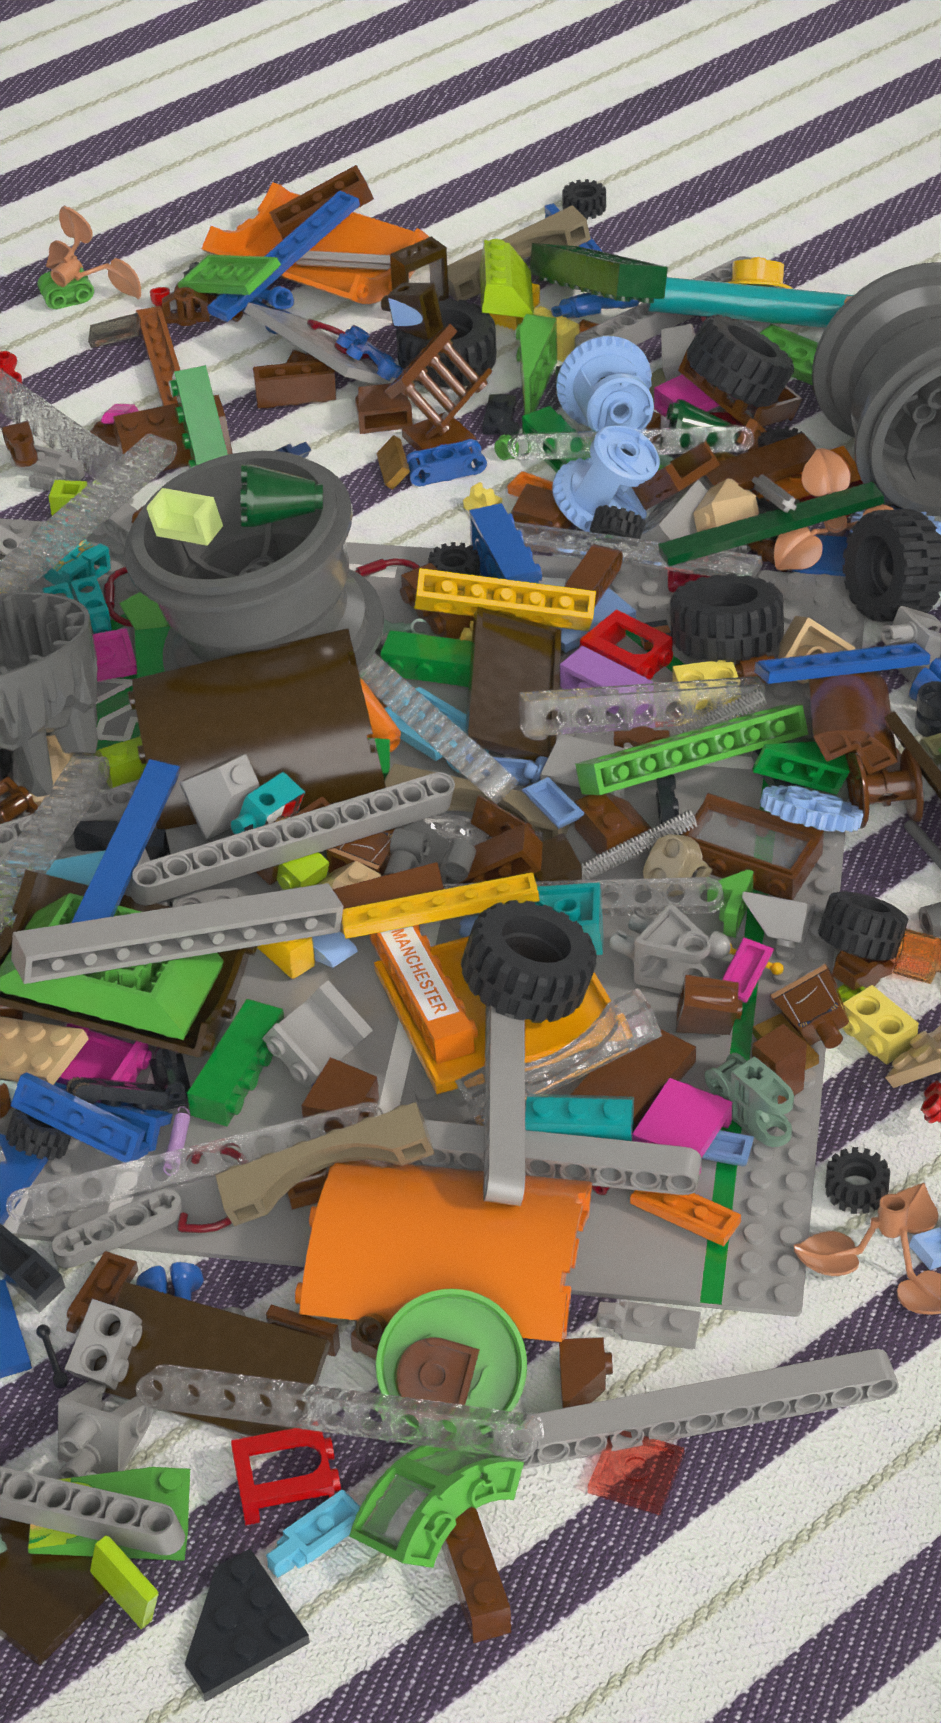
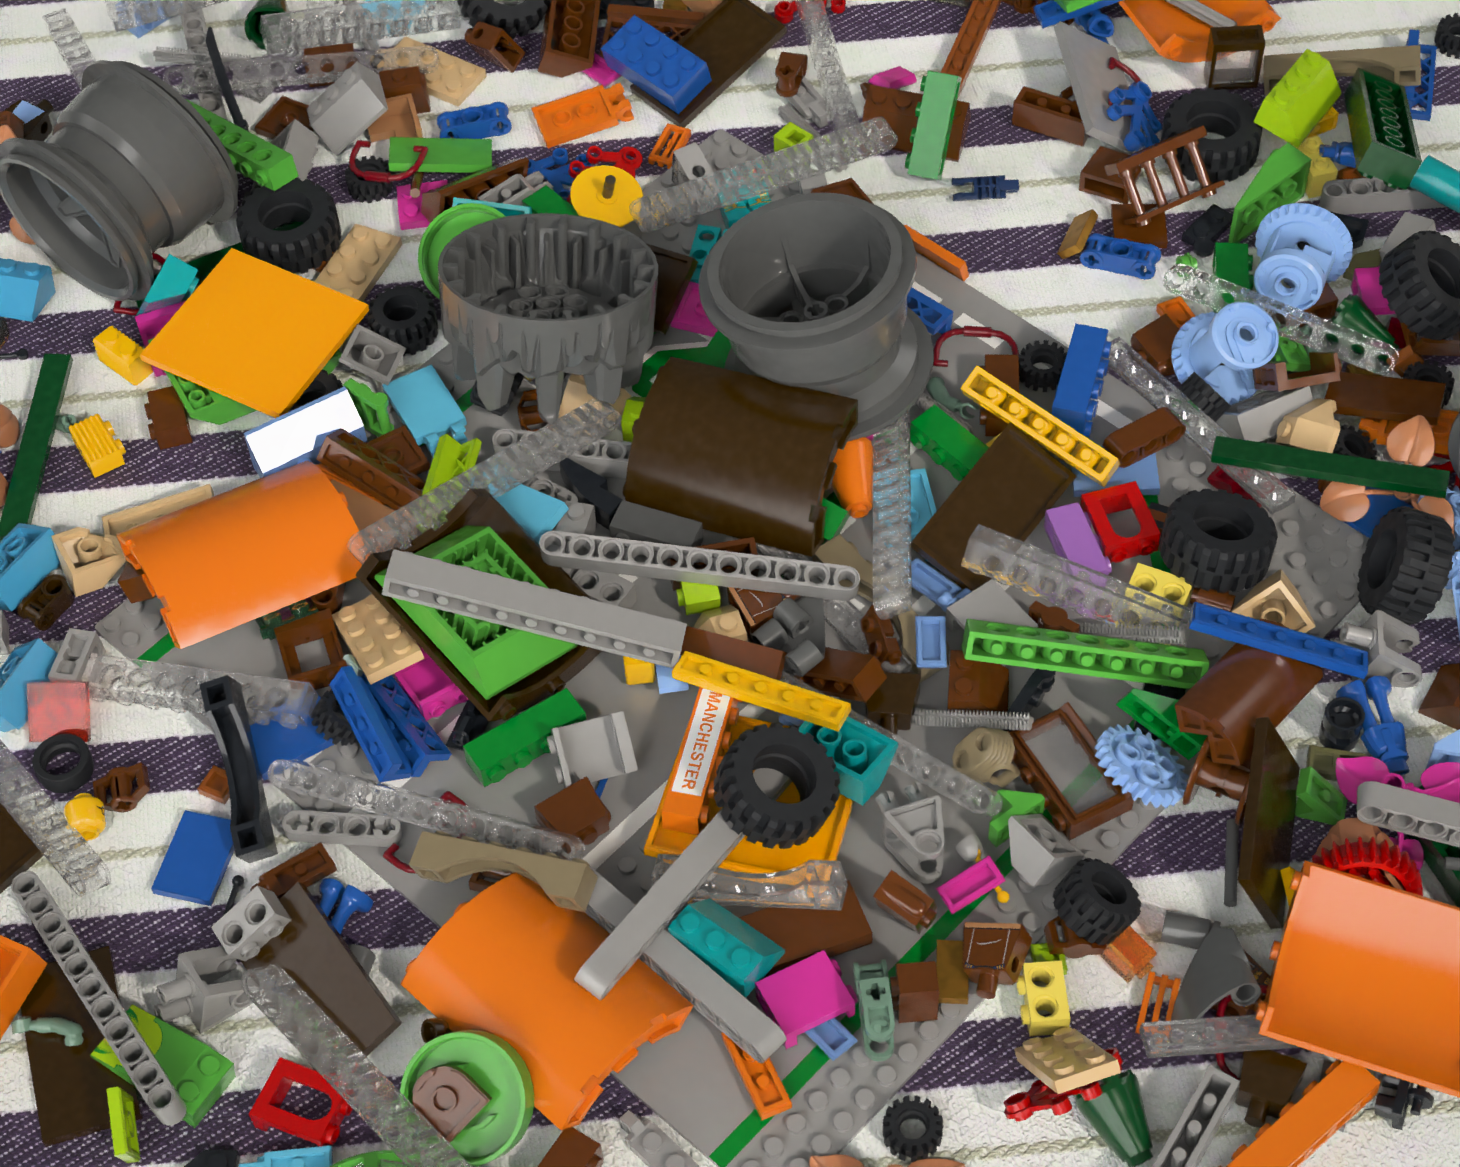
camera: 35 degrees right, 10 degrees up
(114, 1092) = (413, 715): black hinge -> none
(128, 842) = (557, 507): blue tile -> none
(178, 1133) = (440, 775): lavender piece -> none
(184, 516) = (762, 242): yellowish green panel -> none
(219, 793) = (671, 497): light grey slope -> none
(268, 804) = (696, 527): teal torso -> none
(276, 496) = (834, 261): dark green cone -> none
(305, 1324) = (404, 998): reddish brown tile -> none
(414, 309) = (1188, 95): dark brown torso -> none
(480, 497) = (1124, 310): light yellow tile -> none
(774, 493) = (1357, 436): light grey axle -> none

